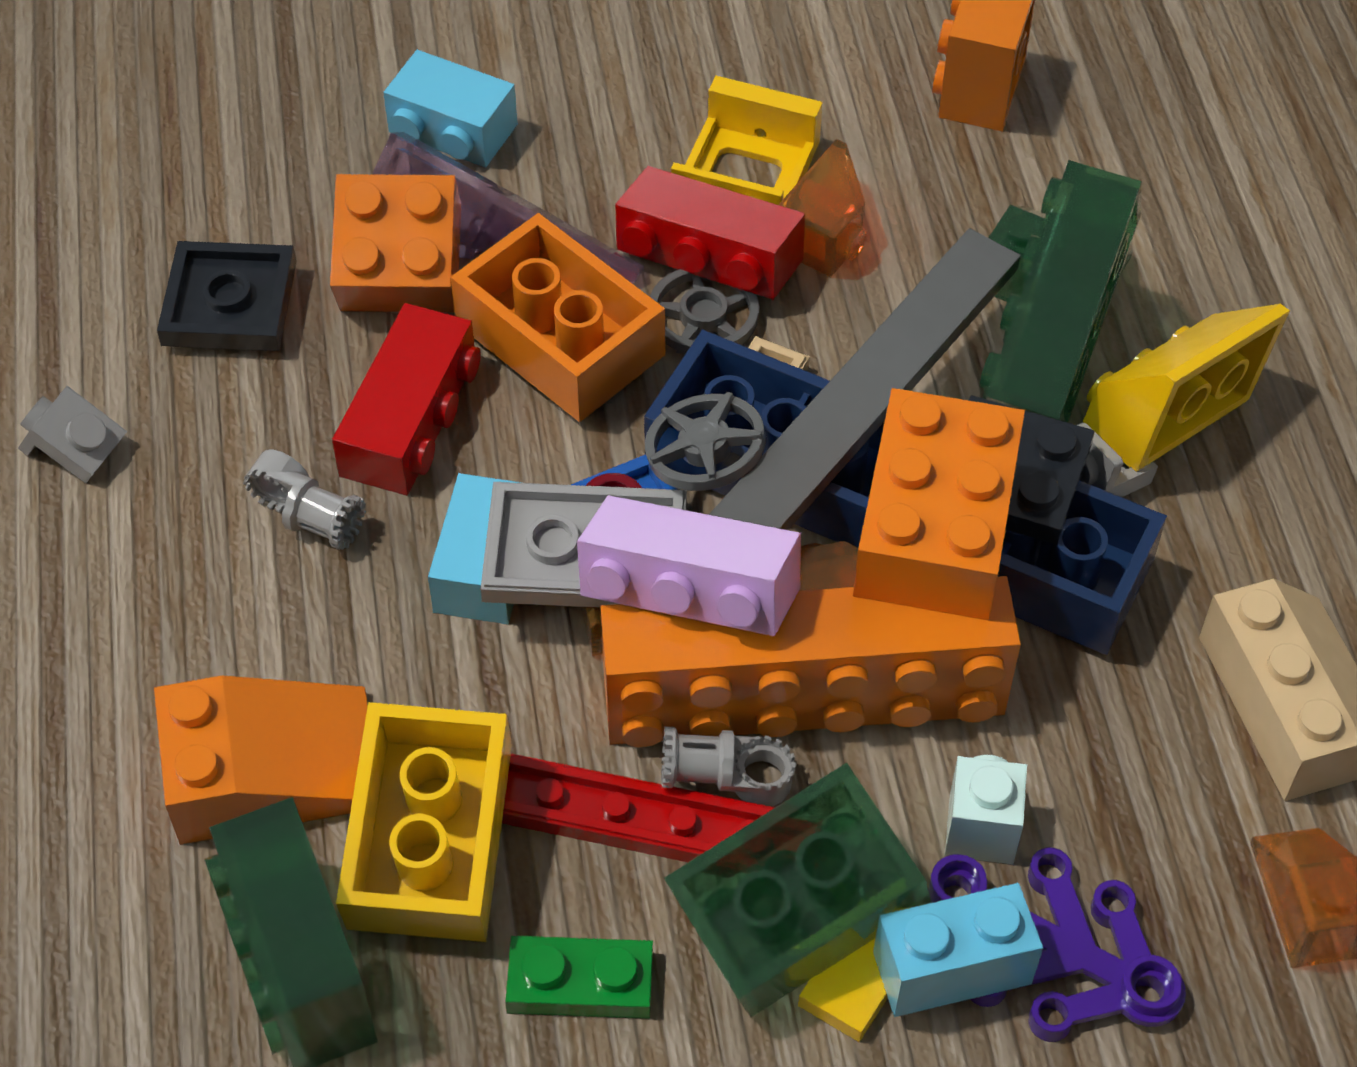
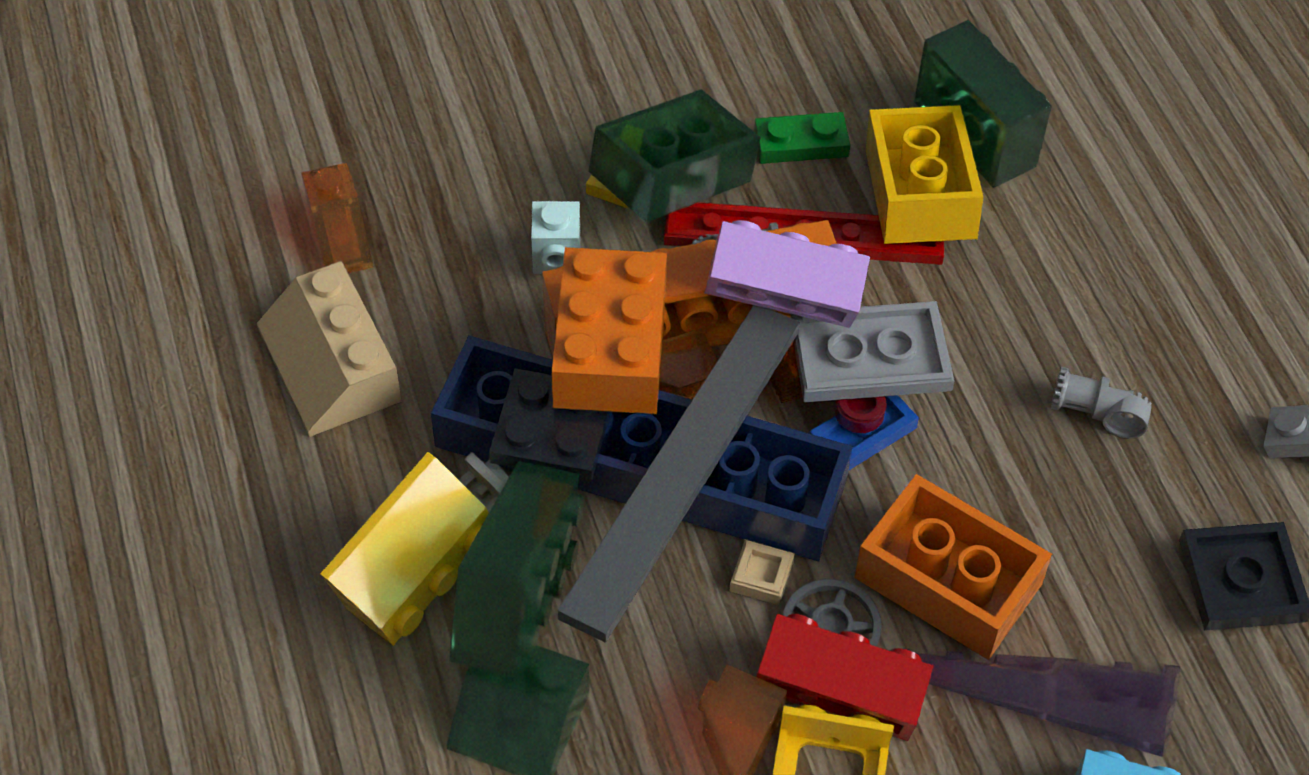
camera: 170 degrees right, 0 degrees up
(254, 743) = (1053, 225): orange slope -> none
(395, 241) = (1117, 615): orange brick -> none
(406, 399) = (1054, 487): red brick -> none
(460, 554) = (965, 405): medium azure brick -> none
(705, 441) = (798, 411): dark grey wheel -> none
(956, 949) = (560, 140): medium azure brick -> none
(1072, 951) = (452, 165): dark purple plant -> none

